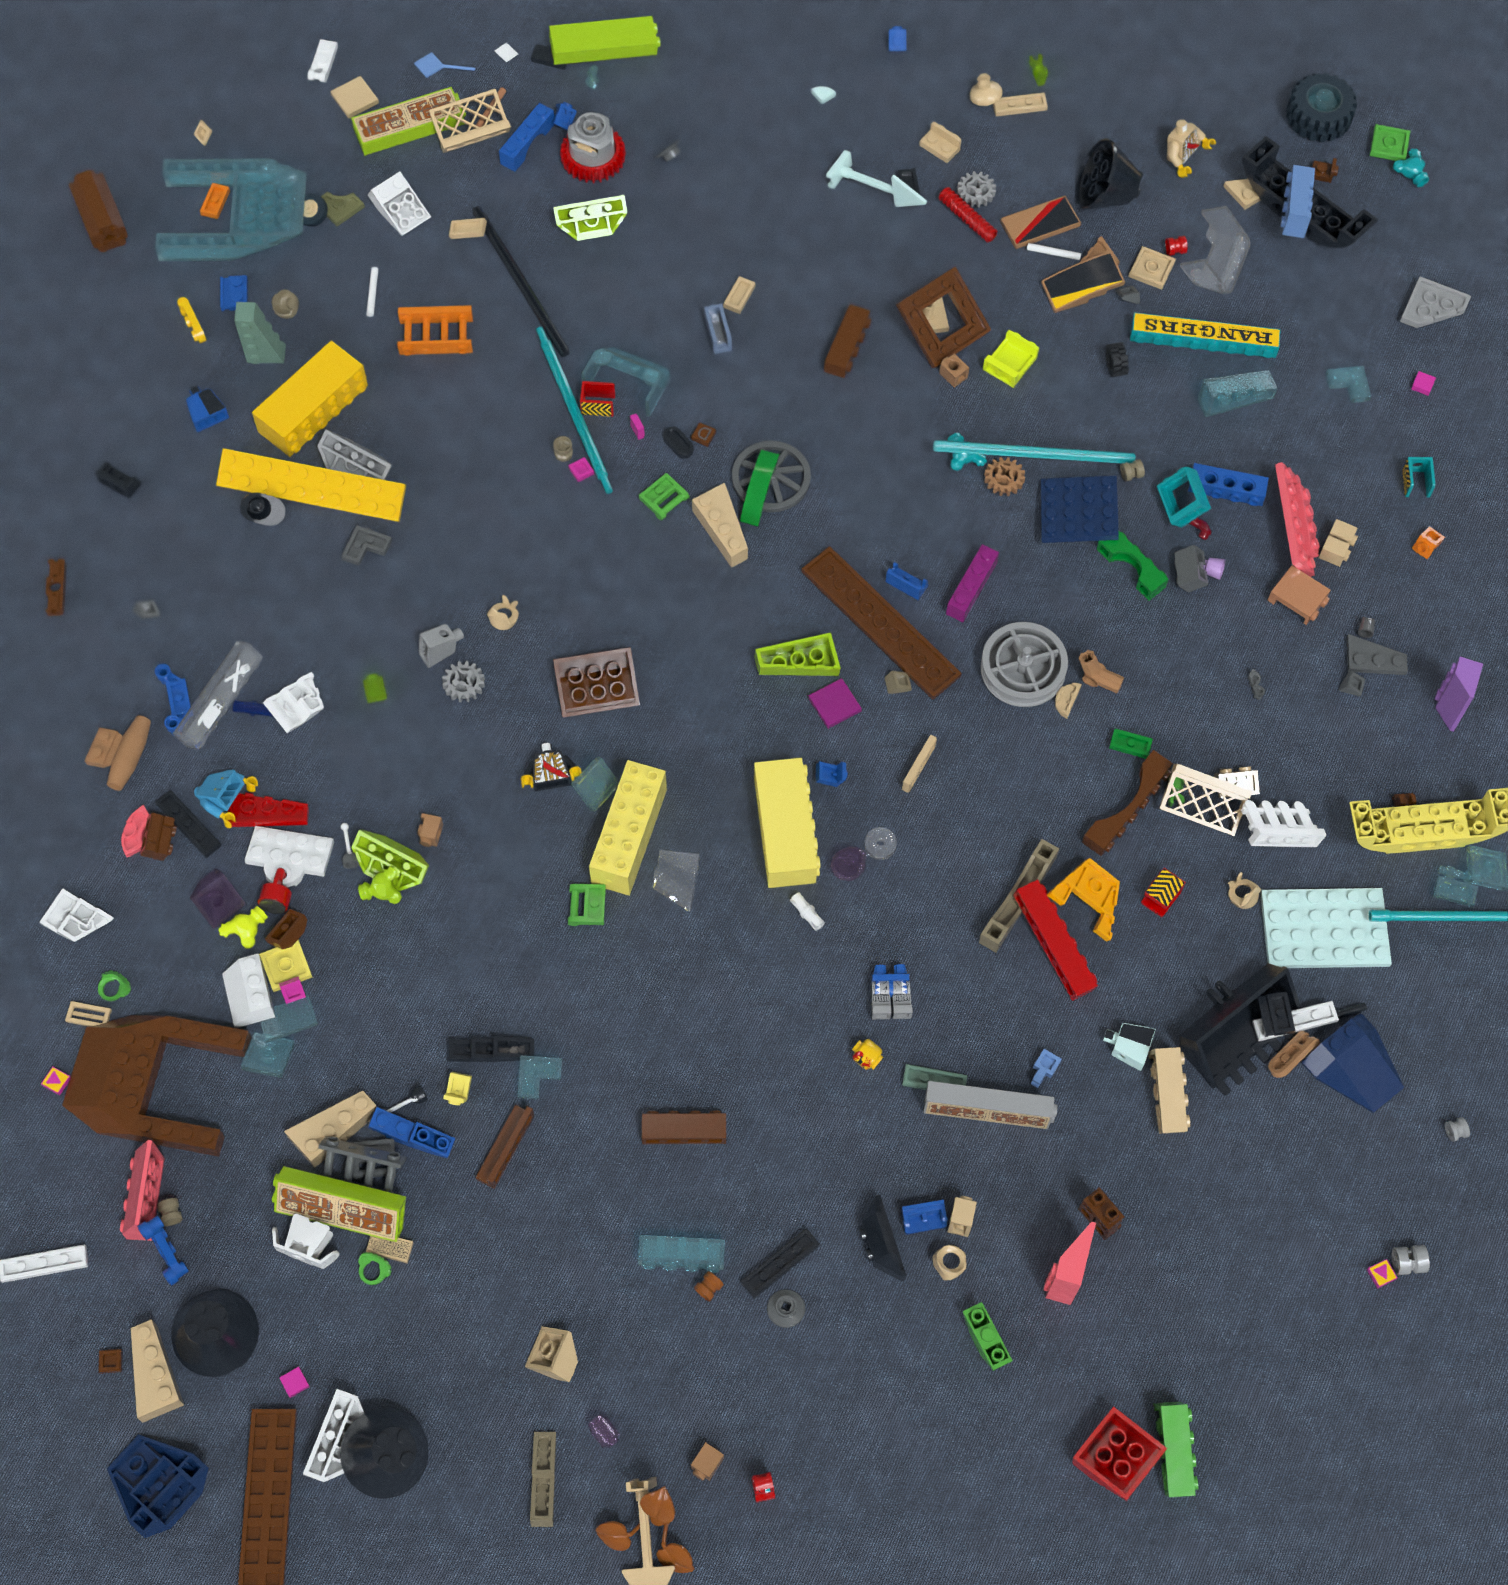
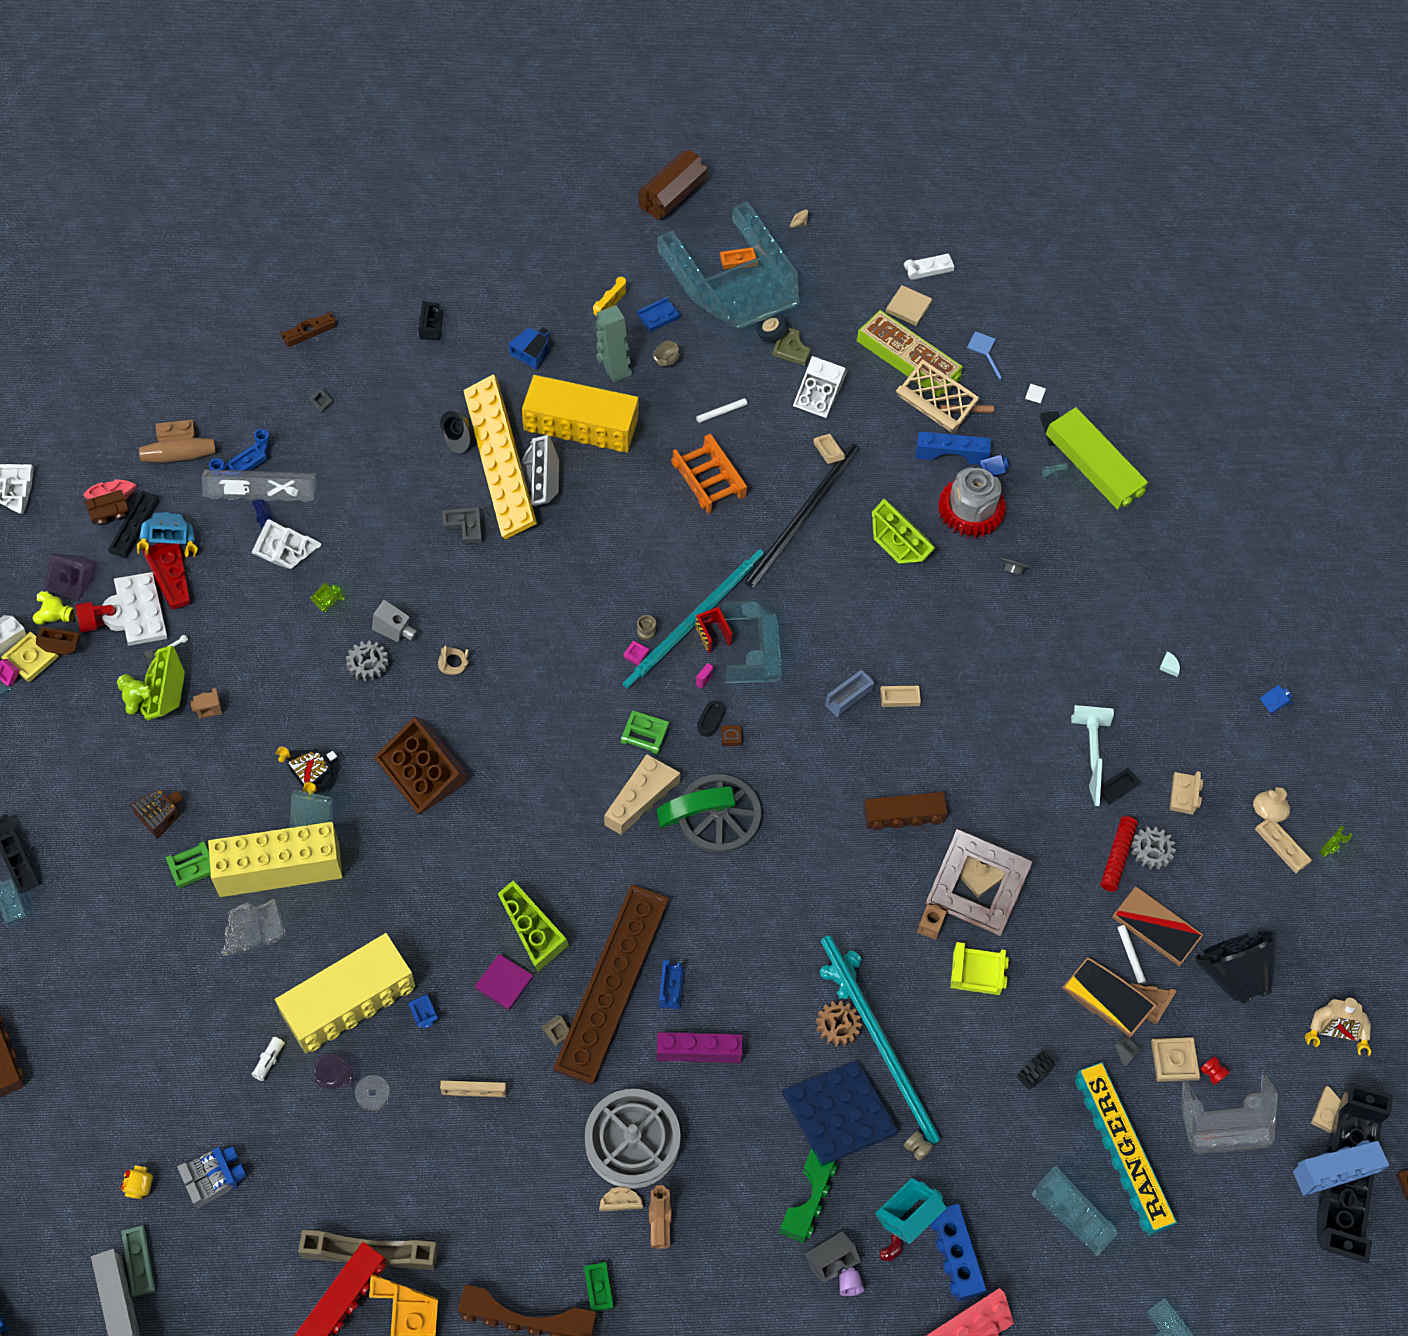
camera: 60 degrees right, 5 degrees down
(518, 912) = (157, 811): none -> torso

